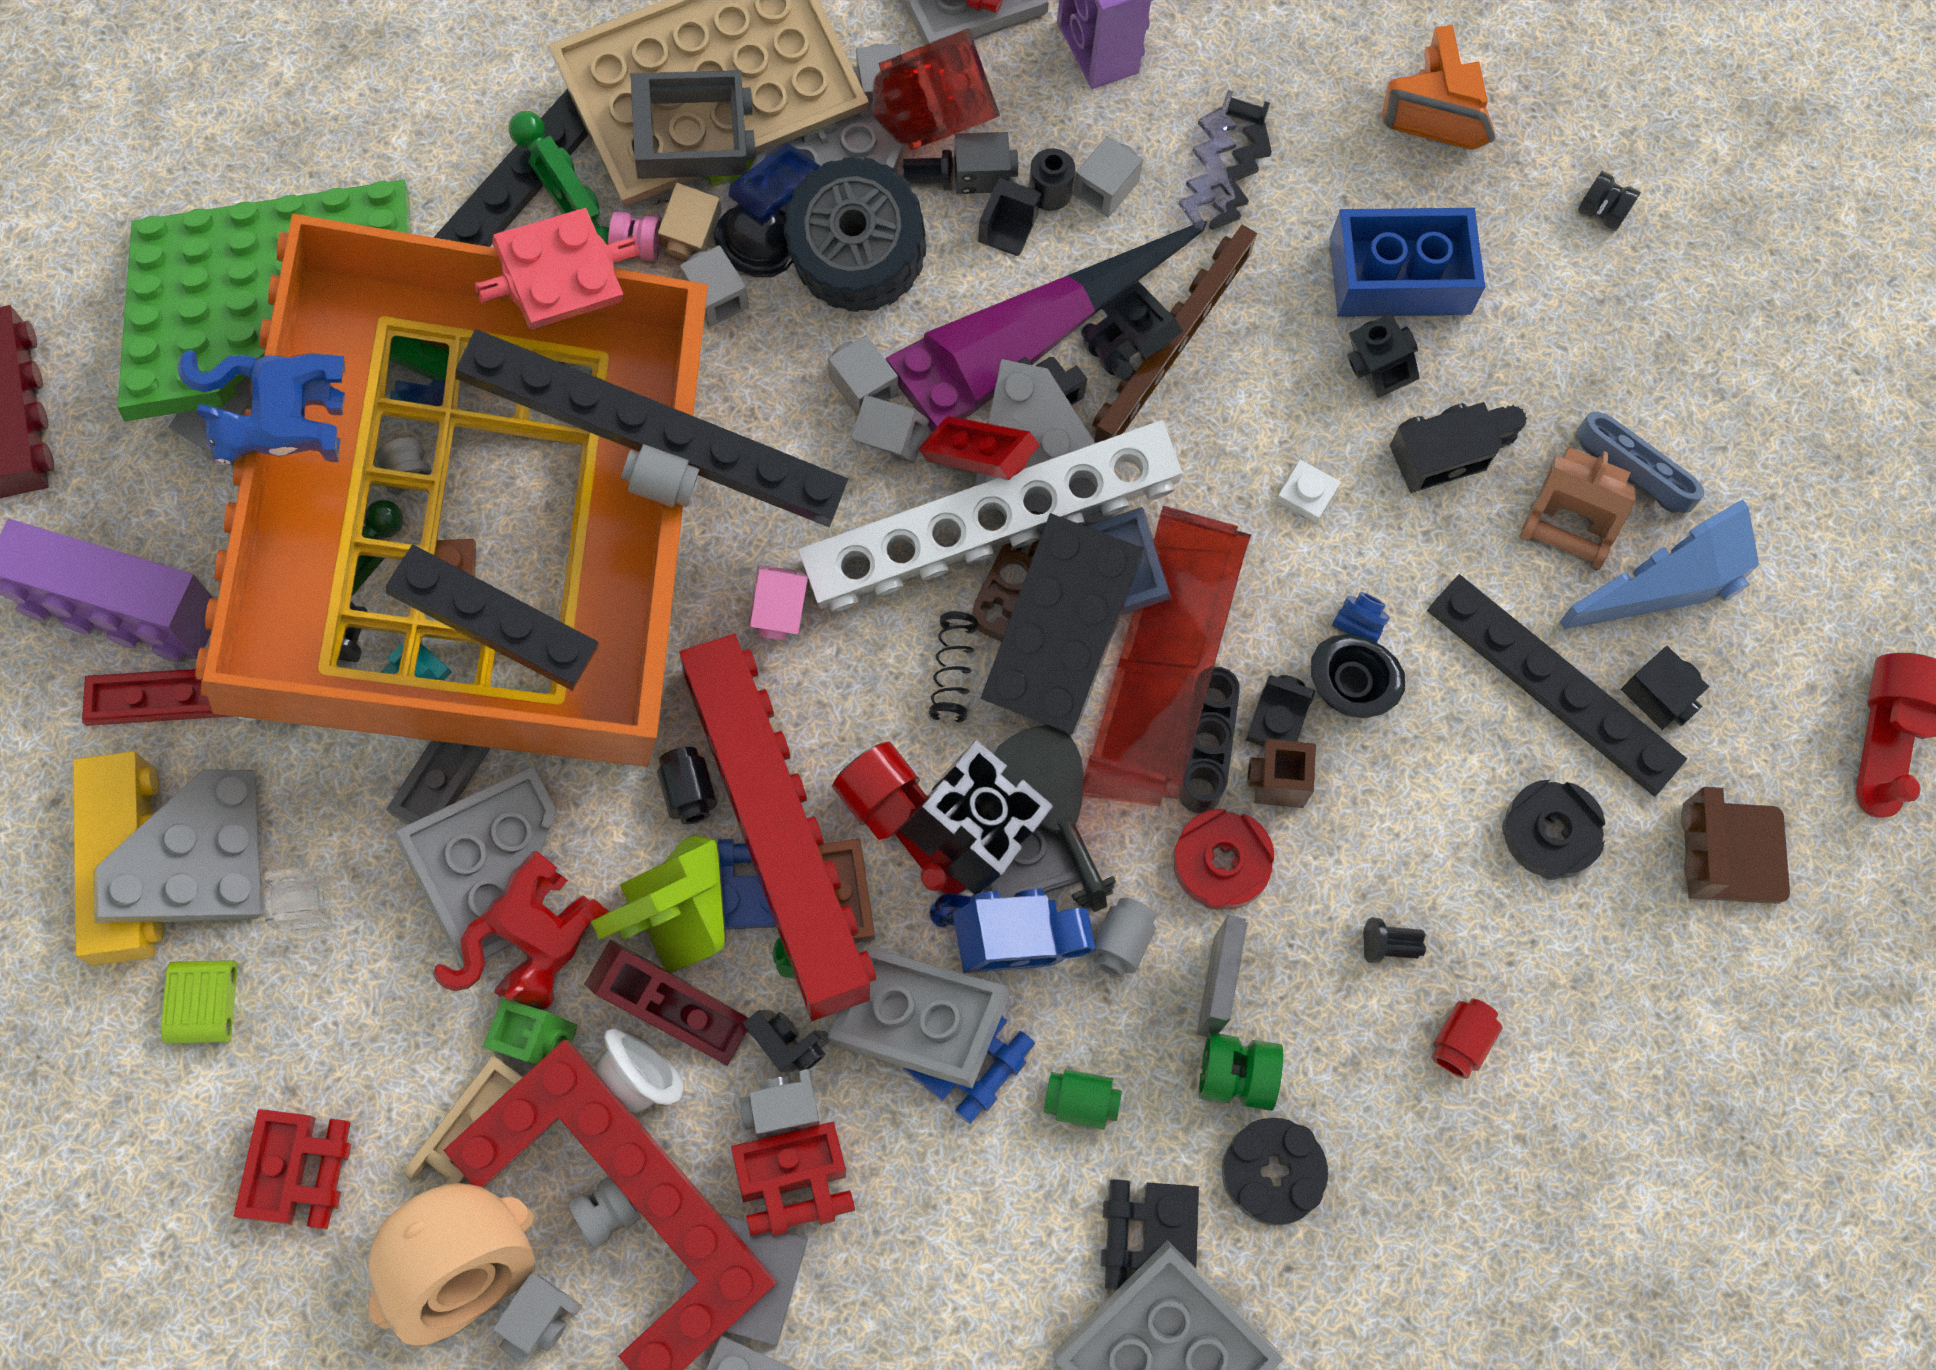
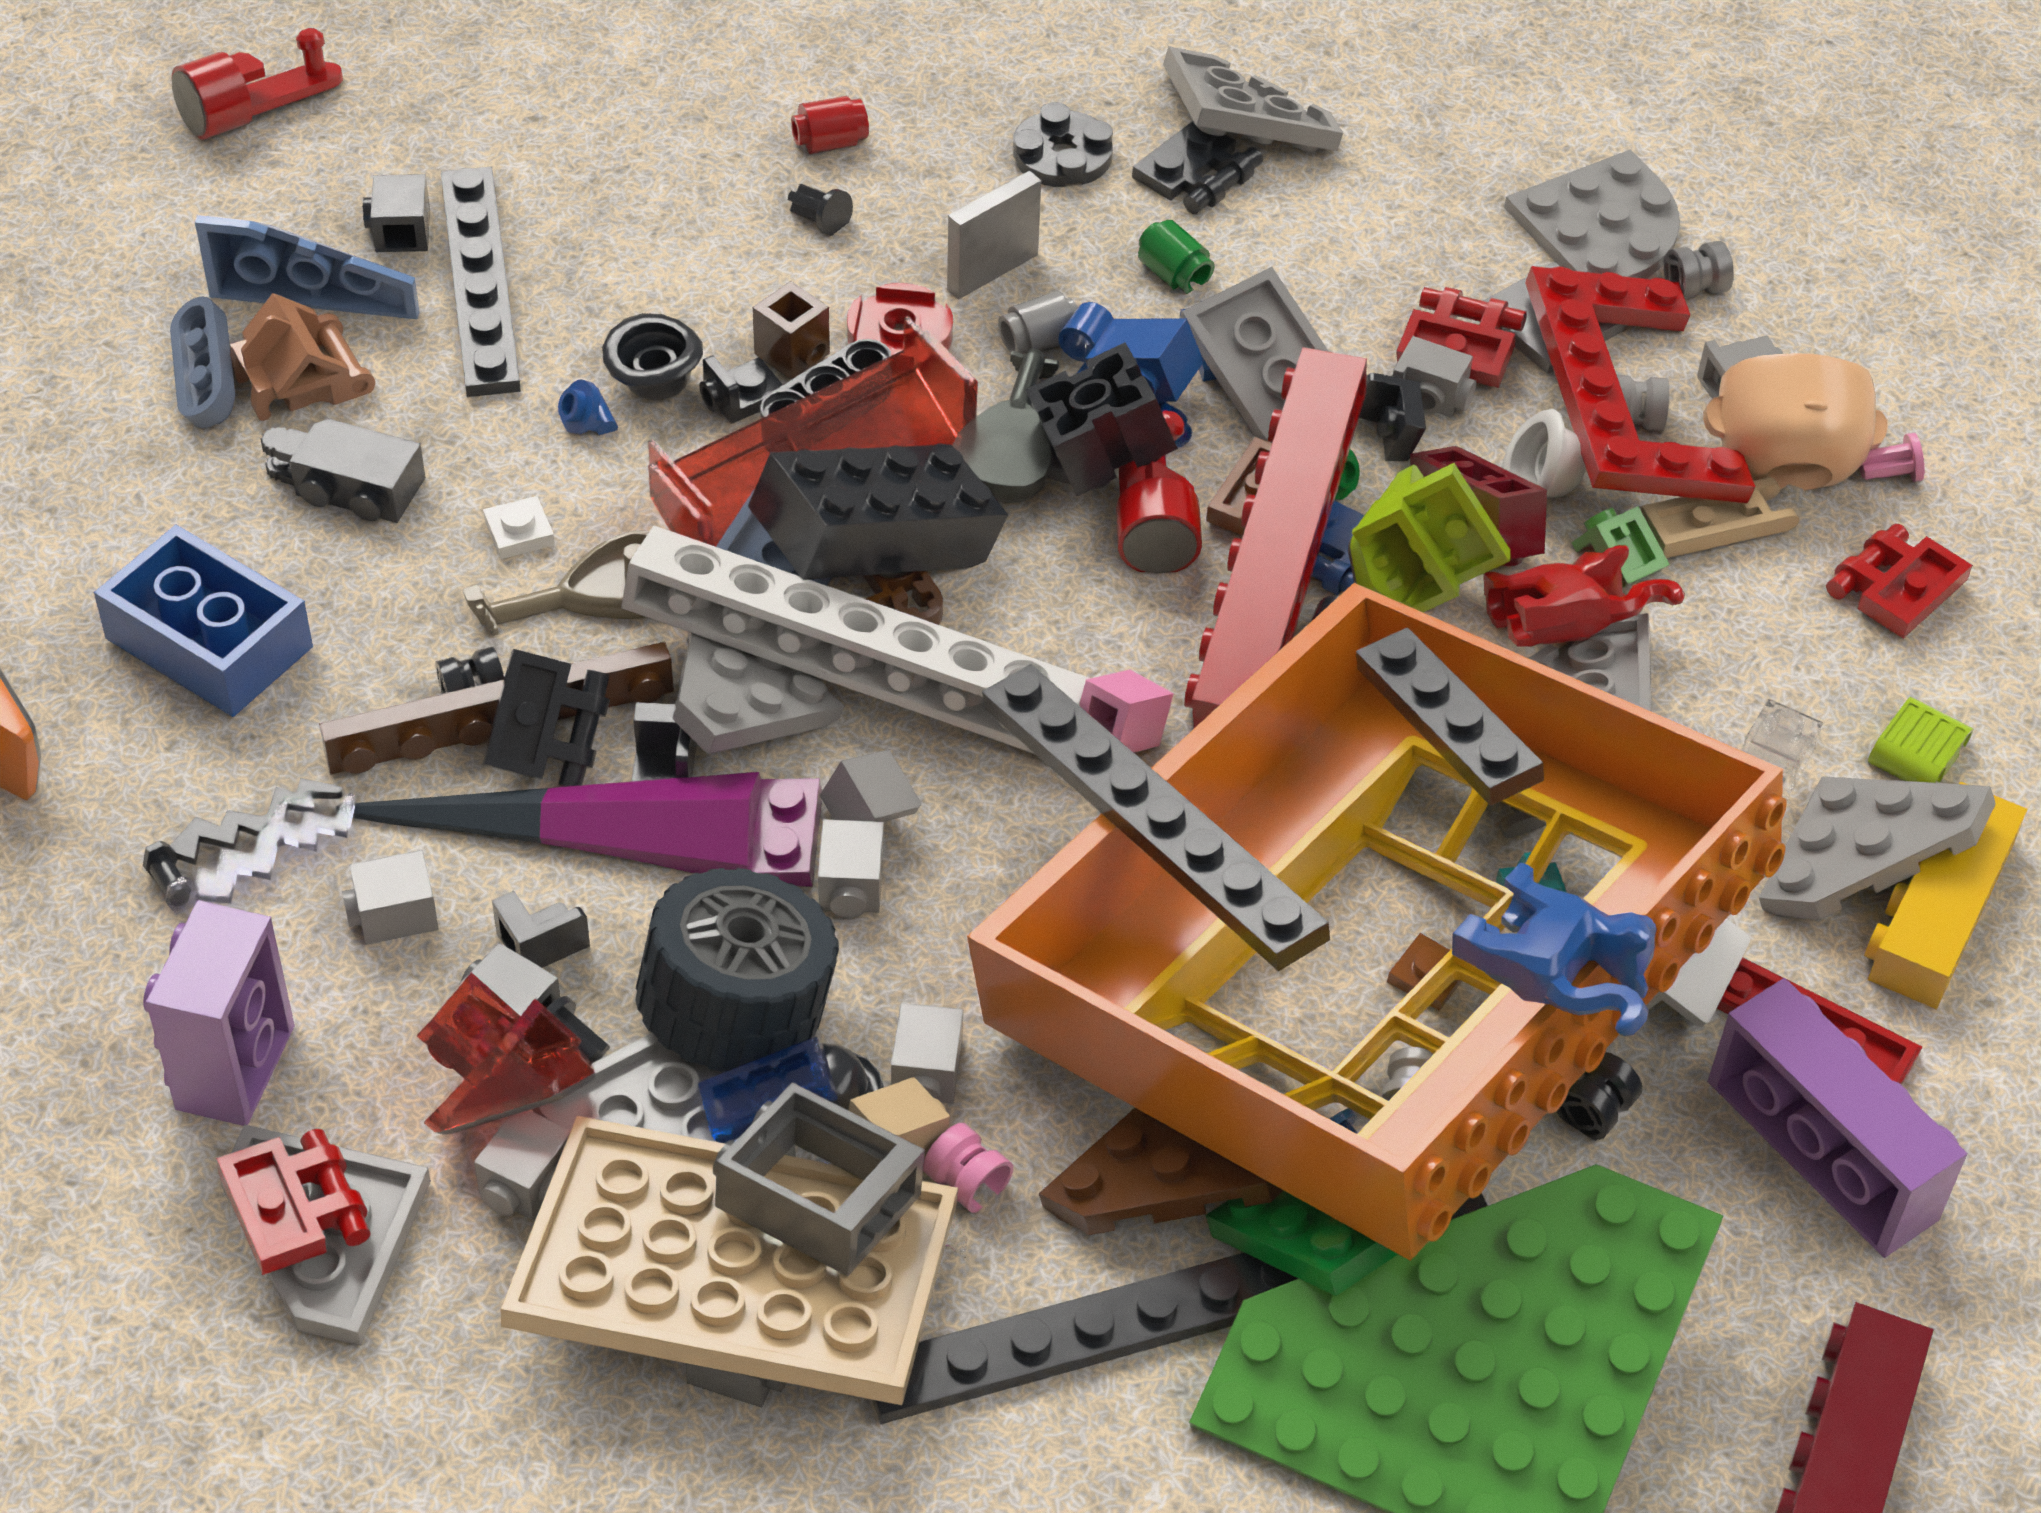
camera: 140 degrees left, 20 degrees down
(352, 1312) = (1896, 460): none -> bright pink piece
(554, 168) = (1004, 1278): green plate -> none
(557, 268) = (1133, 989): coral plate -> none
(660, 476) = (1181, 750): light grey brick -> none
(949, 706) = (949, 615): black piece -> none
(979, 447) = (814, 683): red plate -> none
(1052, 175) = (459, 922): black brick -> none
(1214, 343) = (459, 675): none -> black wheel
(1215, 483) = (589, 588): none -> dark tan piece
(1258, 1077) = (1059, 196): green wheel -> none
(1384, 355) = (324, 562): black brick -> none
(1547, 855) = (586, 212): black plate -> none
(1734, 850) = (485, 105): reddish brown bracket -> none

